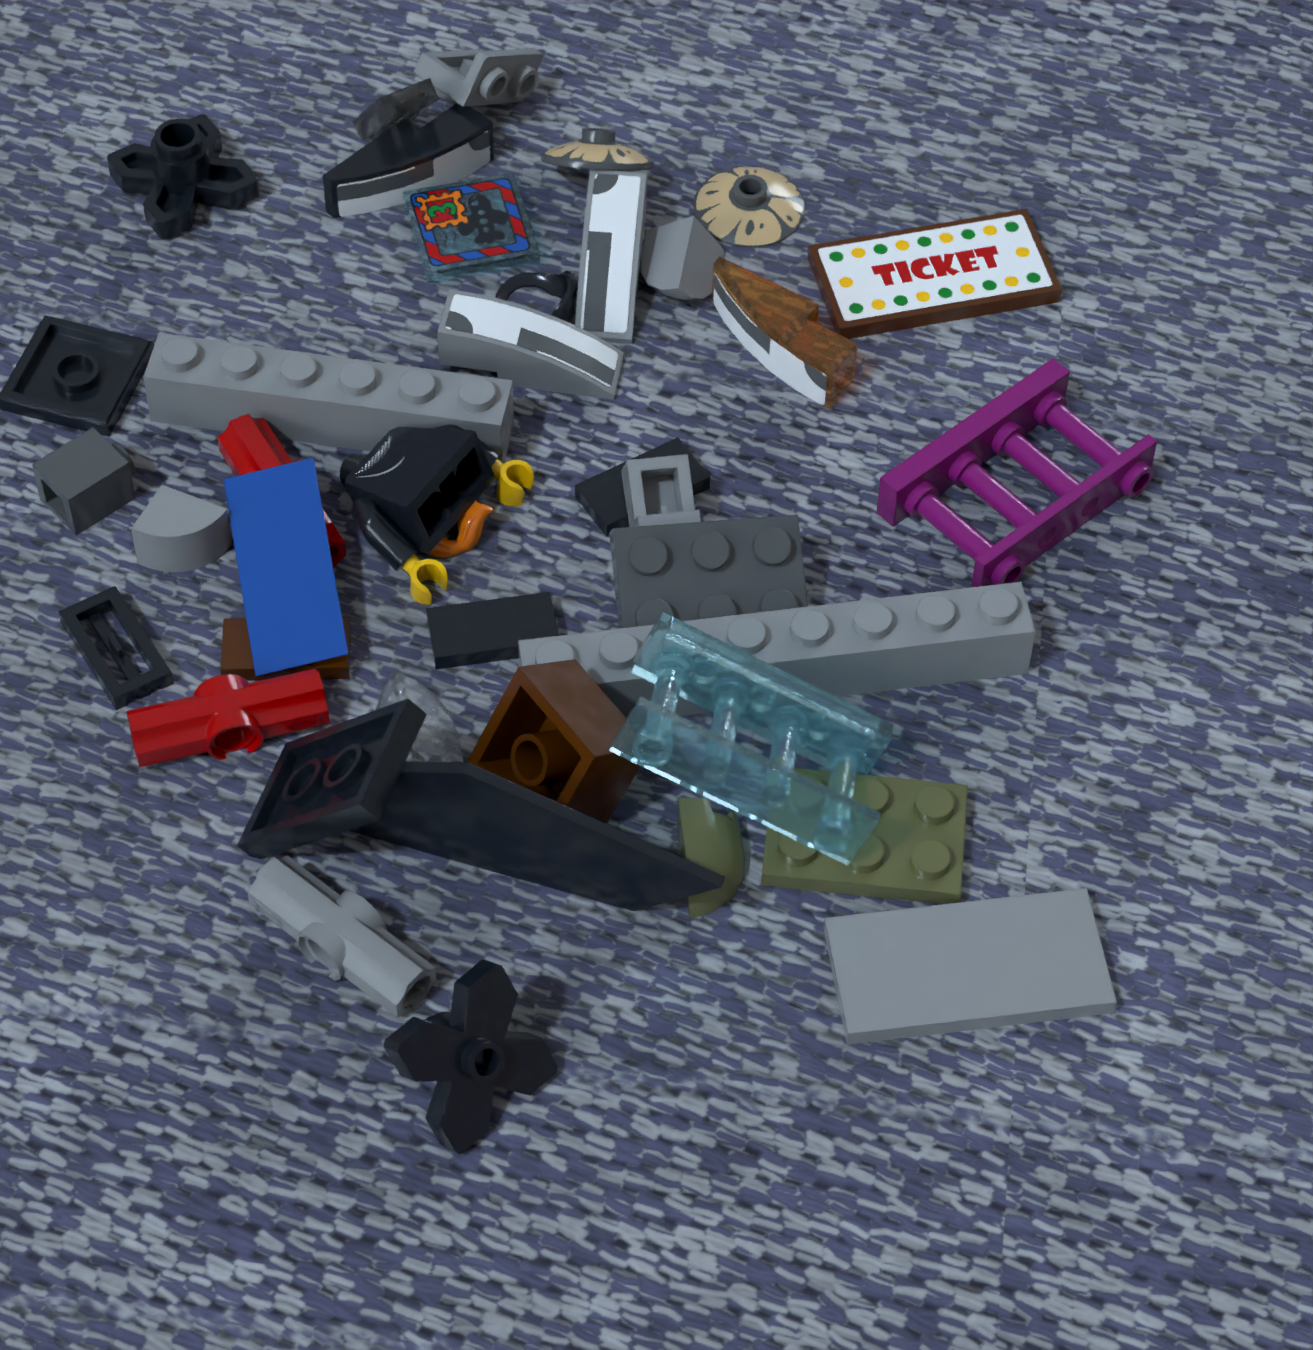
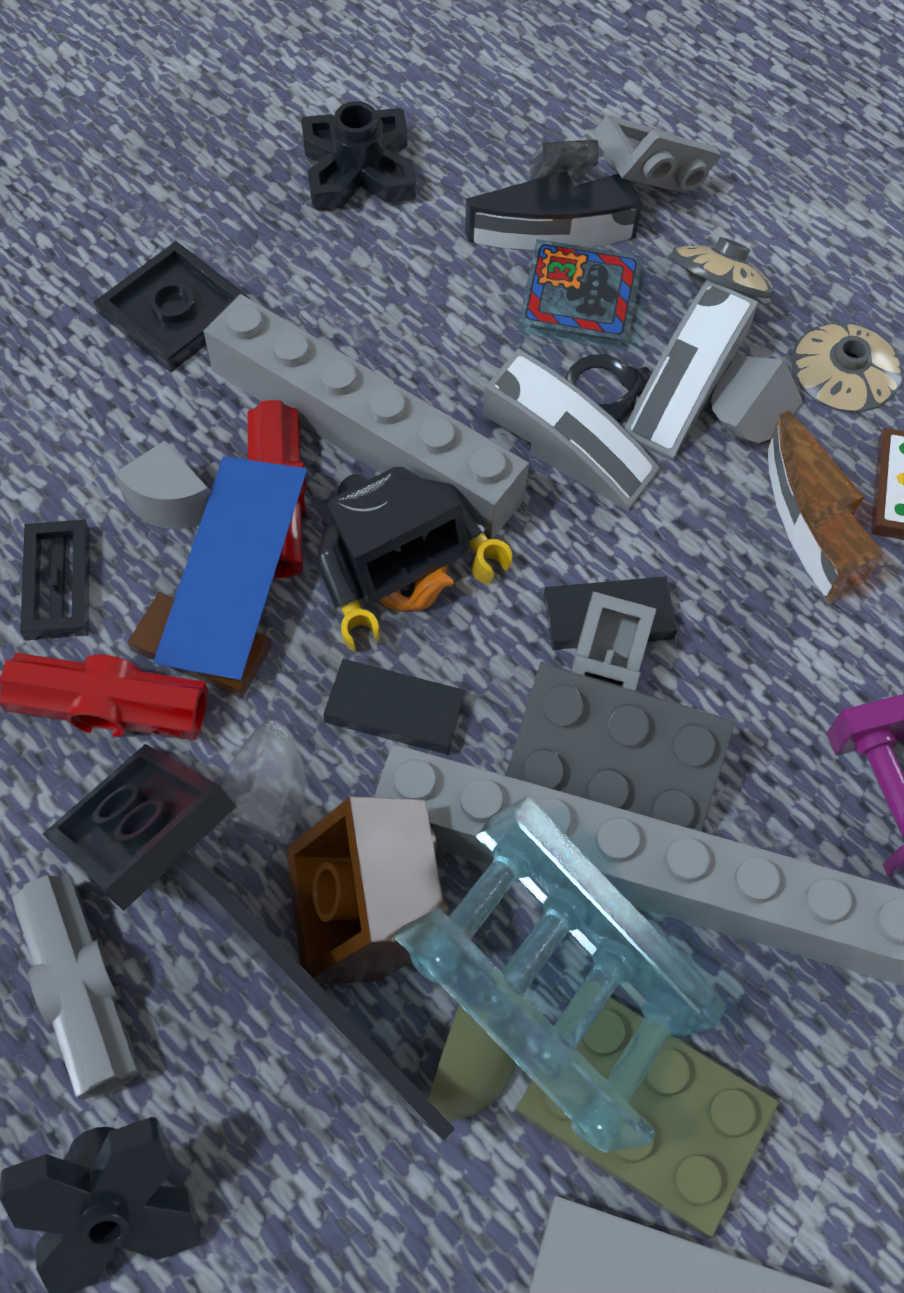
camera: 25 degrees right, 10 degrees up
(85, 480) = (116, 407): dark grey brick -> none

